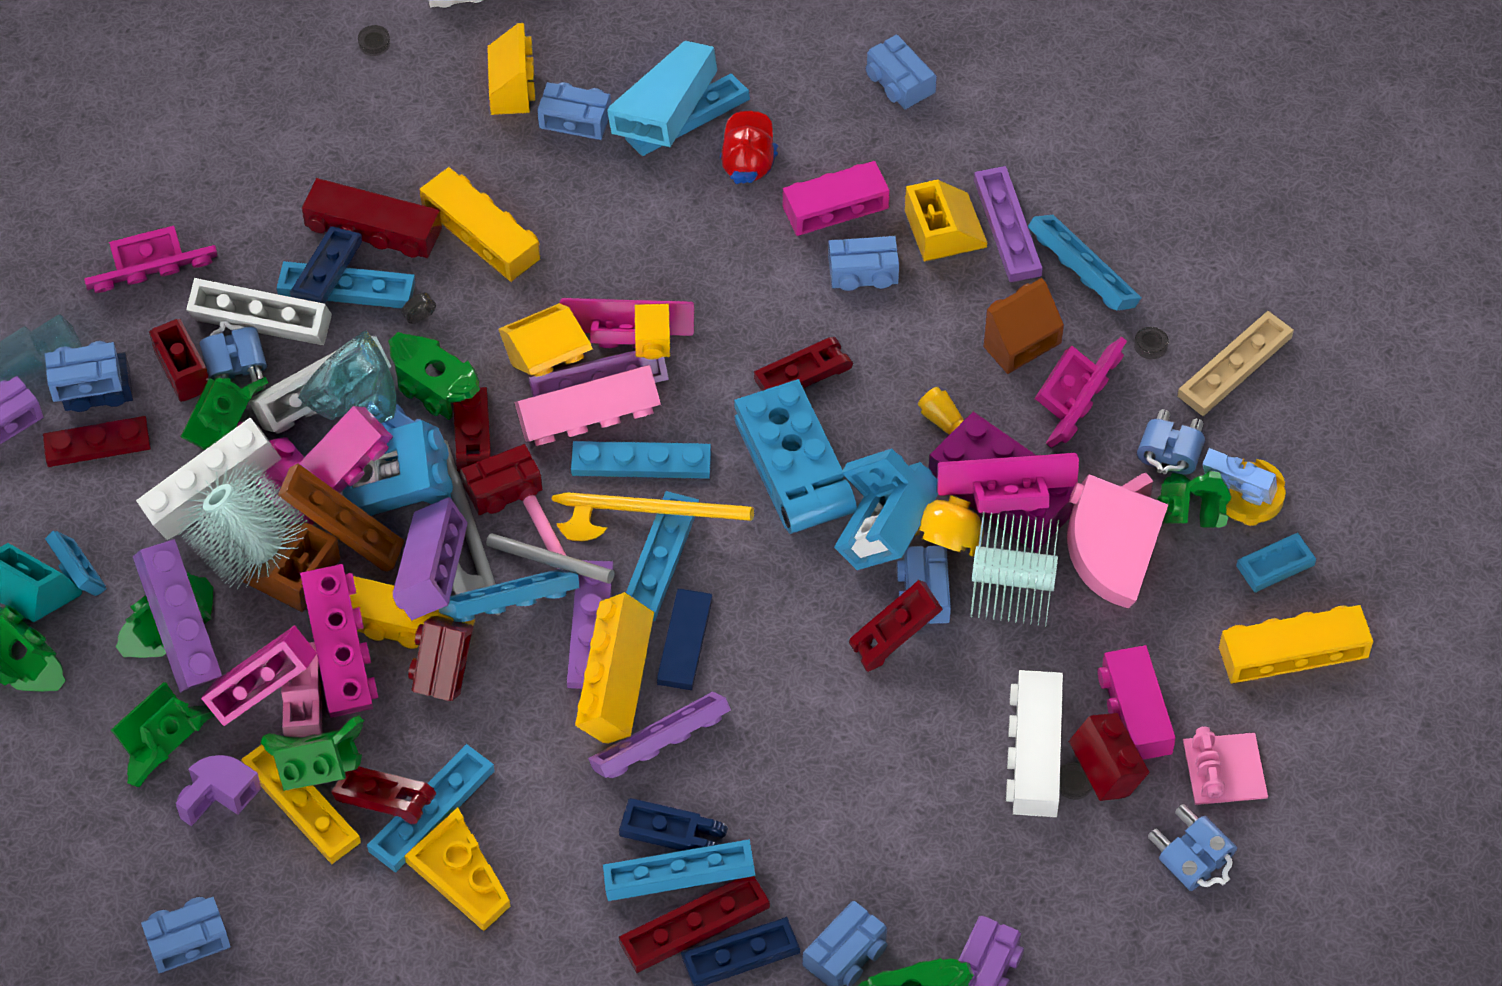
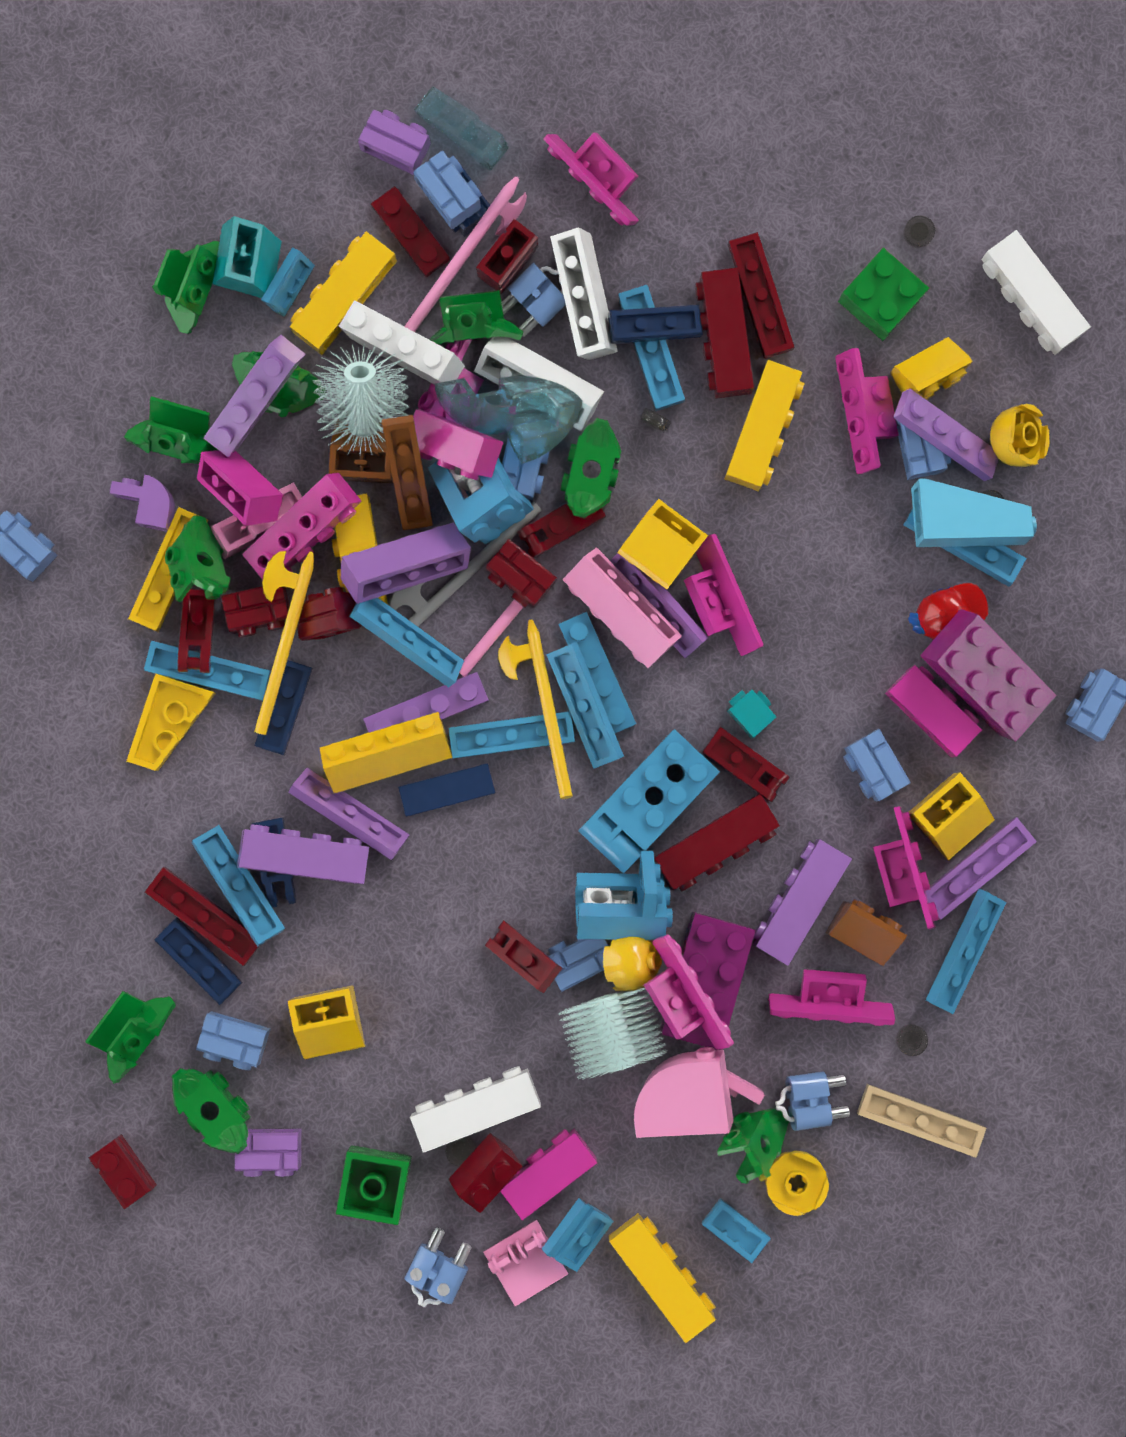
camera: 65 degrees right, 30 degrees up
(116, 513) = (348, 281): none -> yellow brick
(138, 362) = (499, 206): none -> bright pink piece
(303, 433) = (485, 412): none -> clear light blue brick
(376, 678) = (274, 577): none -> yellow piece
(383, 180) = (761, 295): none -> dark red plate
(394, 731) = (252, 610): none -> dark red brick
(415, 83) = (883, 294): none -> green brick
(511, 755) = (286, 708): none -> dark blue tile
(514, 142) = (867, 410): none -> dark pink bracket
(550, 558) = (465, 638): light grey bar -> none
(579, 79) = (946, 434): none -> medium lavender plate
(613, 33) = (1019, 436): none -> yellow cylinder
(652, 331) = (704, 631): yellow brick -> none
(667, 473) = (585, 705): none -> dark azure plate
(681, 786) = (302, 856): none -> medium lavender brick
(754, 342) = (751, 711): none -> teal brick
(824, 132) = (988, 675): none -> magenta brick
(866, 406) = (716, 842): none -> dark red brick
(872, 842) = (326, 1022): none -> yellow slope
(940, 410) = (756, 898): yellow cone -> none
(964, 371) = (802, 900): none -> medium lavender brick
(978, 277) = (901, 872): none -> dark pink bracket
(1072, 867) = (373, 1185): none -> green brick
(1215, 700) = (577, 1235): none -> dark azure plate
(1253, 482) = (784, 1192): light blue brick -> none

